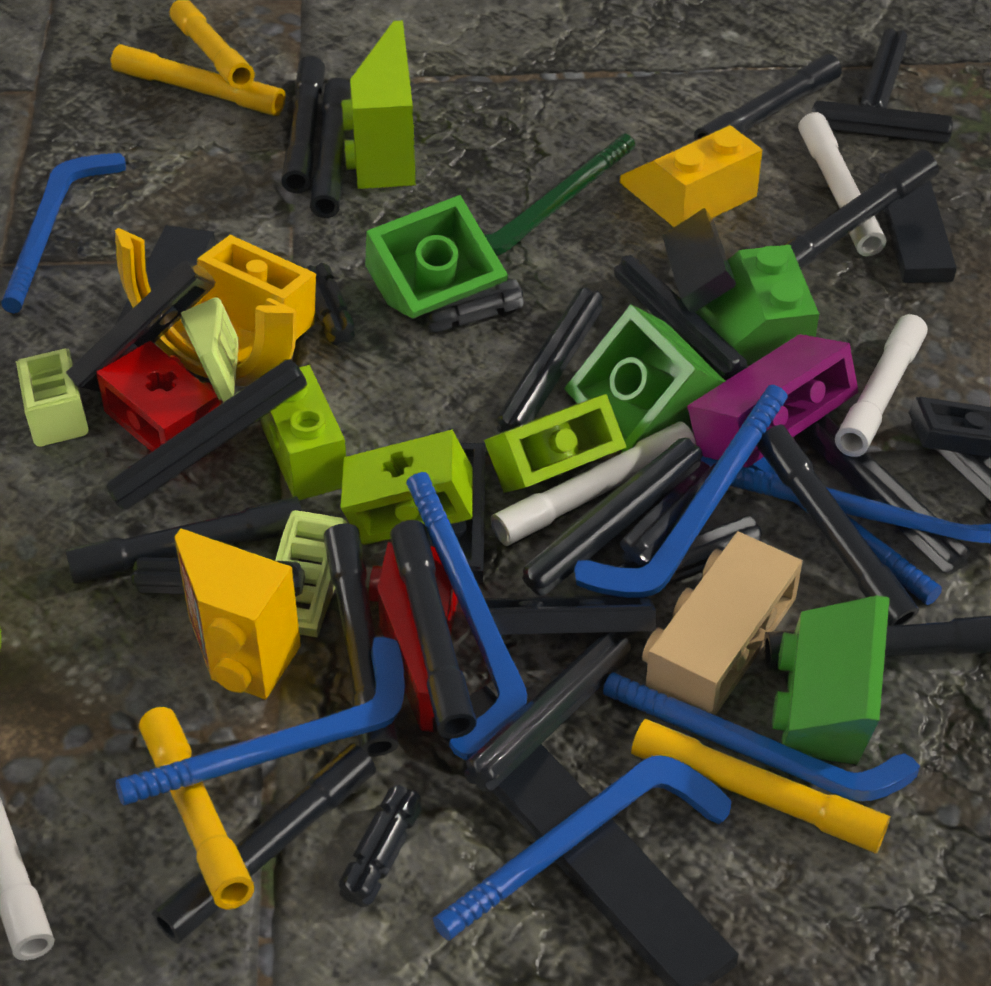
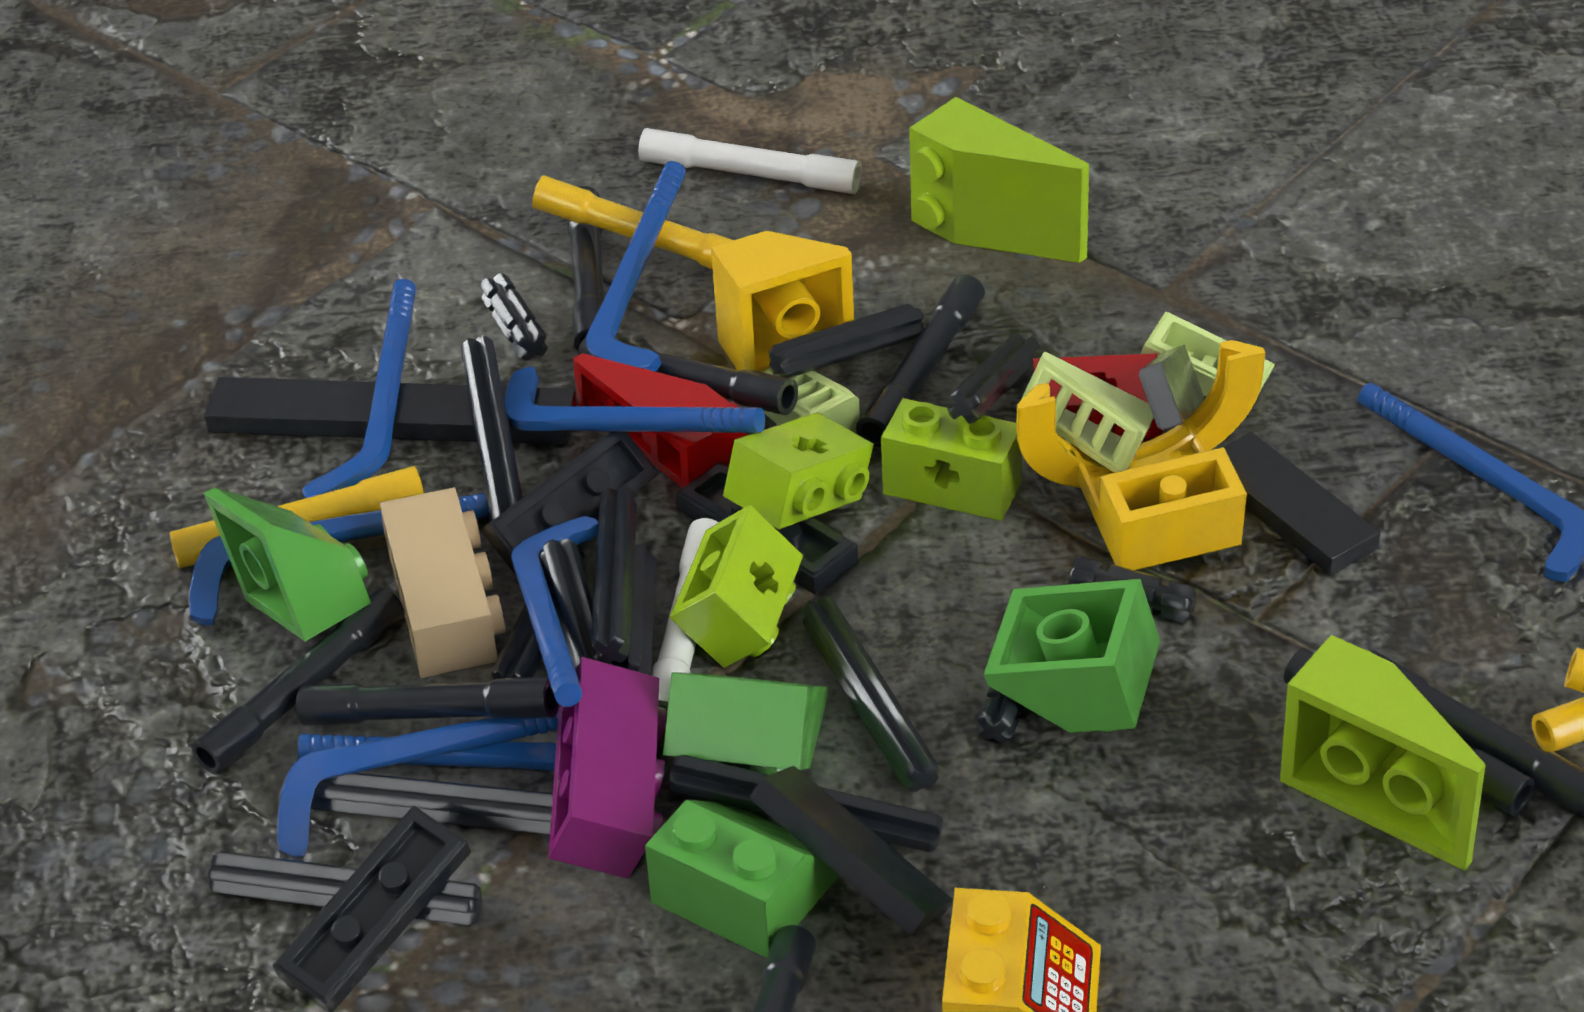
camera: 135 degrees right, 5 degrees down
(445, 681) = (562, 351): black piece -> none
(519, 227) = (1099, 779): dark green piece -> none
(866, 415) = (560, 941): white piece -> none

